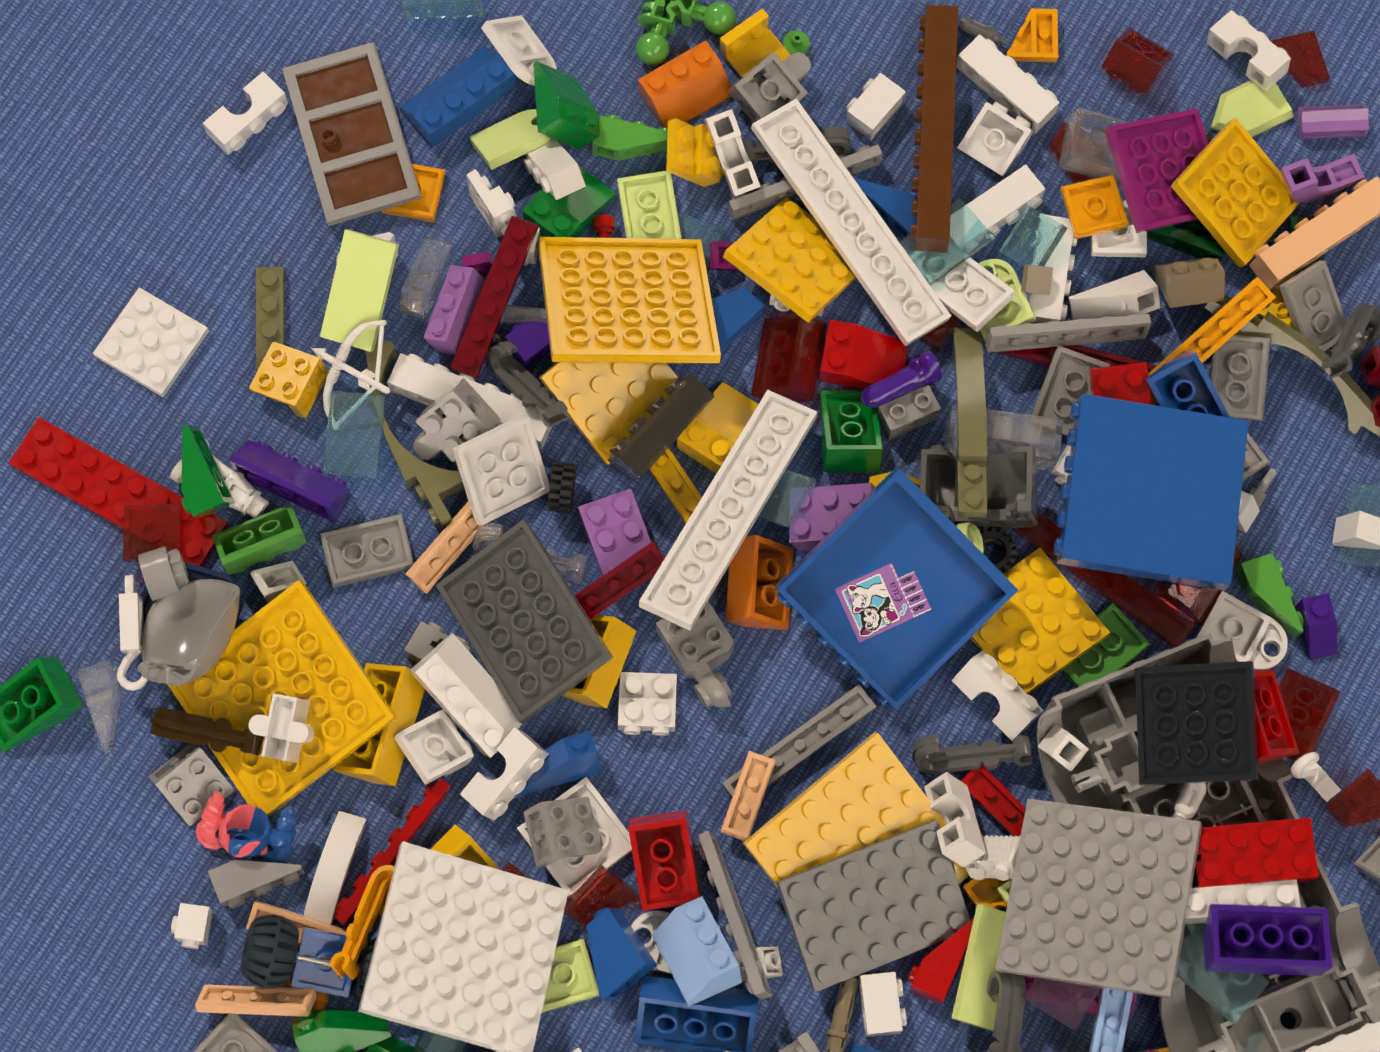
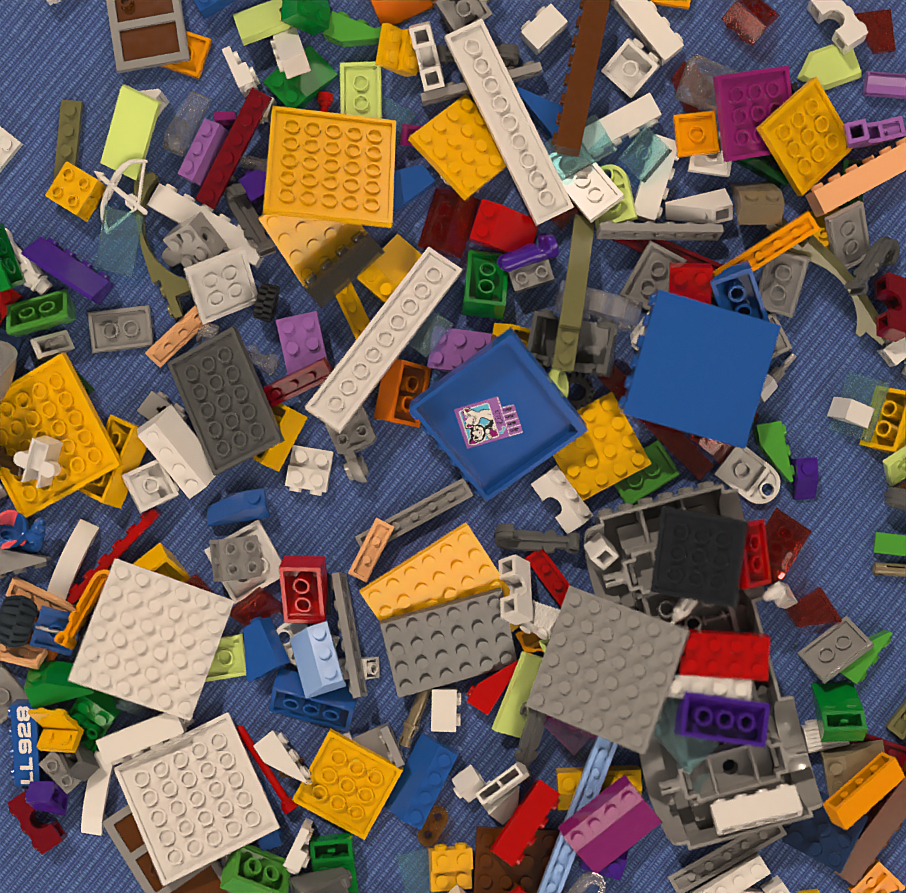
camera: 15 degrees right, 15 degrees up
(522, 759) = (211, 501): white arch -> none
(1037, 279) = (642, 187): dark tan tile -> none

